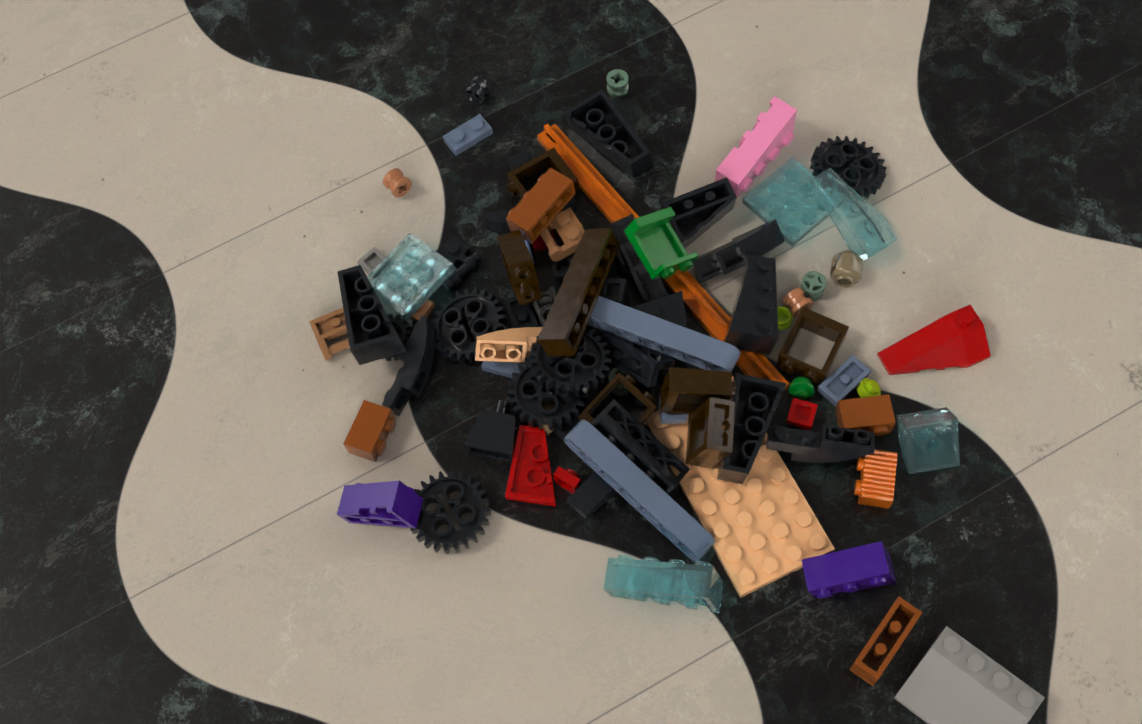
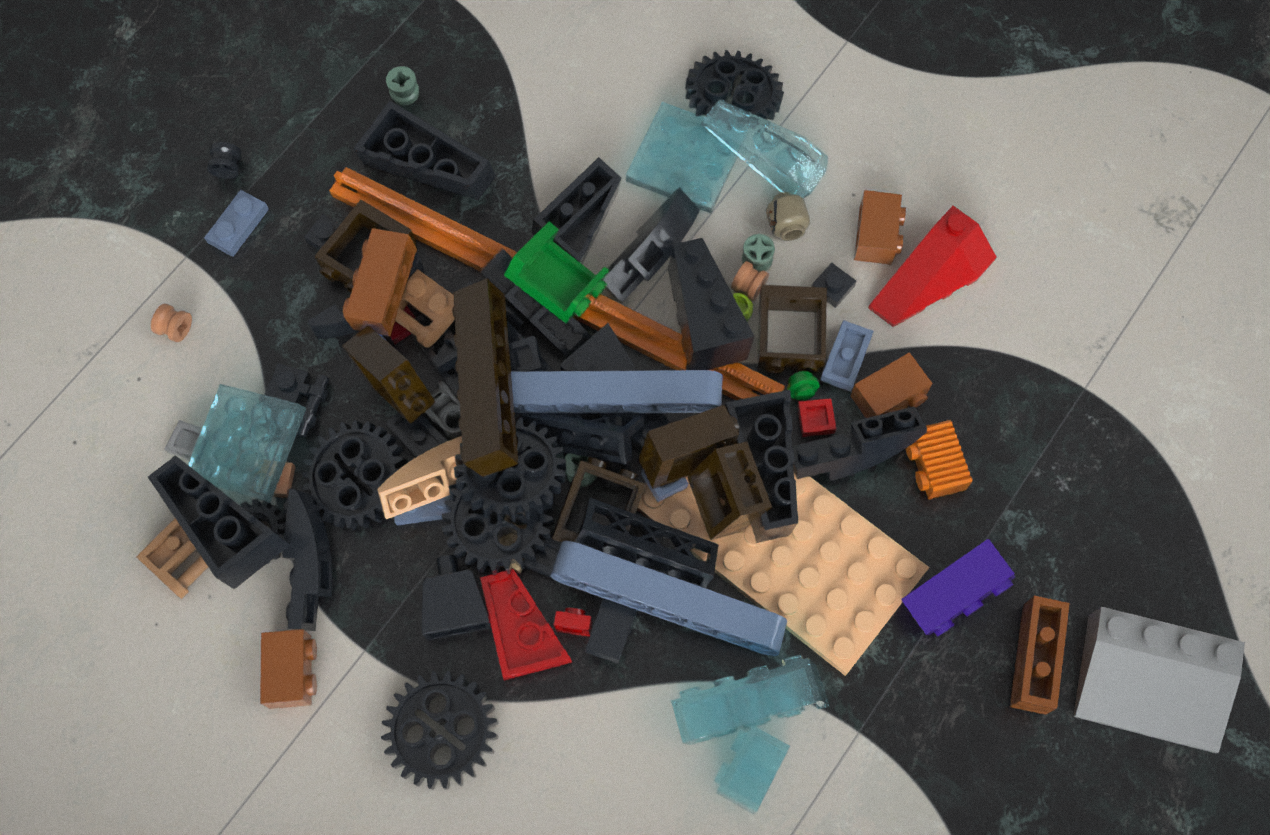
camera: 30 degrees left, 5 degrees up
(380, 504) = (347, 763): dark purple wedge -> none
(643, 628) = (752, 768): none -> clear light blue brick
(759, 147) = (617, 103): bright pink wedge -> none
(859, 329) = (837, 284): none -> black plate
(868, 388) = (880, 354): lime plate -> none
(909, 300) = (879, 227): none -> dark orange brick
(929, 440) = (976, 387): clear light blue slope -> none

